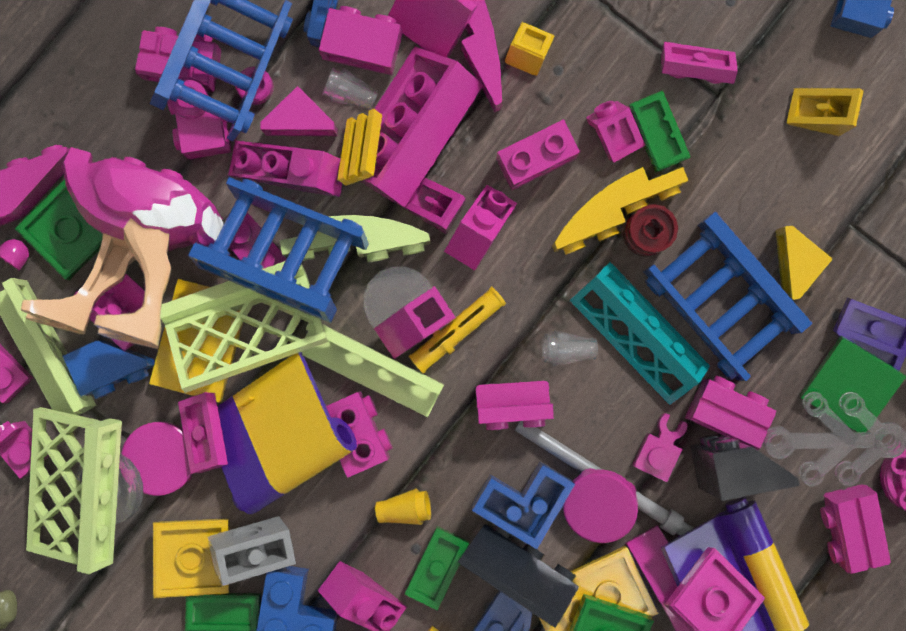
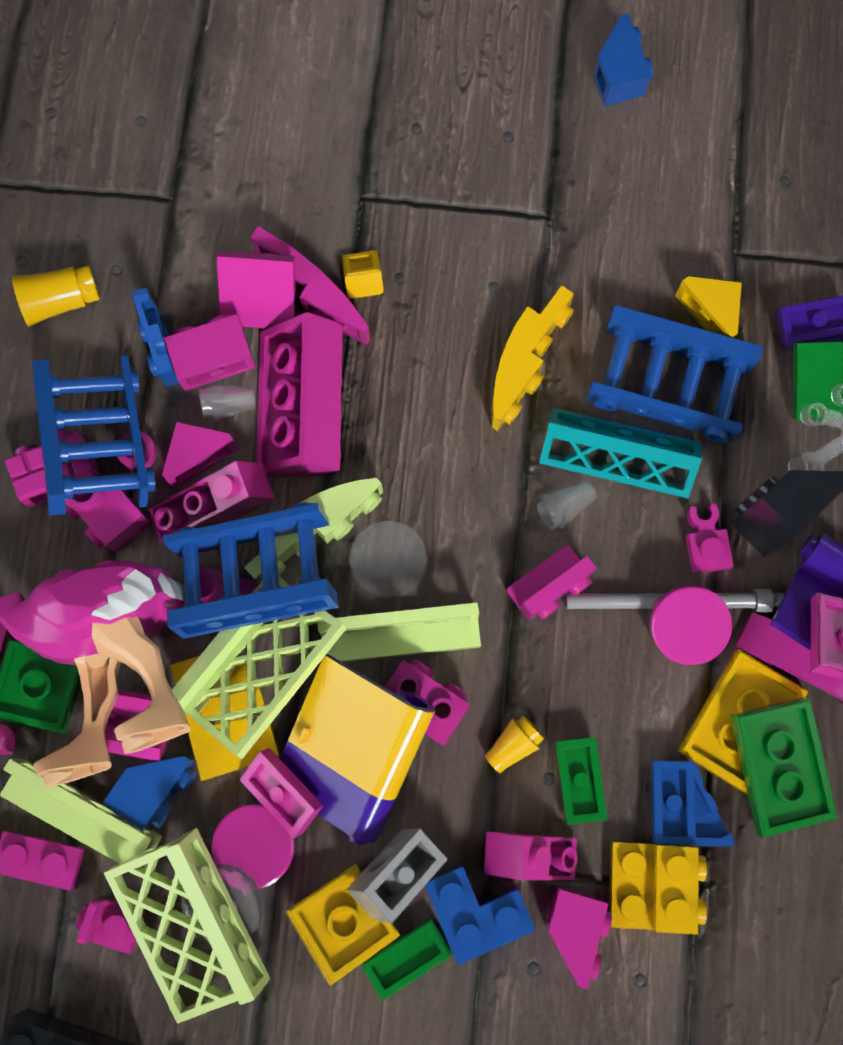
camera: 30 degrees left, 10 degrees down
(360, 147) = (262, 446): yellow tile -> none
(414, 322) = (415, 562): dark pink slope -> none
(424, 358) = (468, 512): yellow pin -> none
(436, 205) = (366, 452): dark pink slope -> none
(480, 227) = (418, 447): dark pink slope -> none
(520, 573) = (662, 731): black slope -> none
(526, 512) = (631, 669): blue brick -> none
(537, 155) = (428, 354): dark pink brick -> none
(616, 129) = (482, 293): dark pink bracket -> none
(650, 230) = (569, 356): dark red wheel -> none
(659, 131) = (520, 273): green plate -> none
(699, 63) = (524, 193): dark pink plate -> none
(730, 412) = (740, 470): dark pink brick -> none
(825, 109) = (649, 169): yellow slope -> none

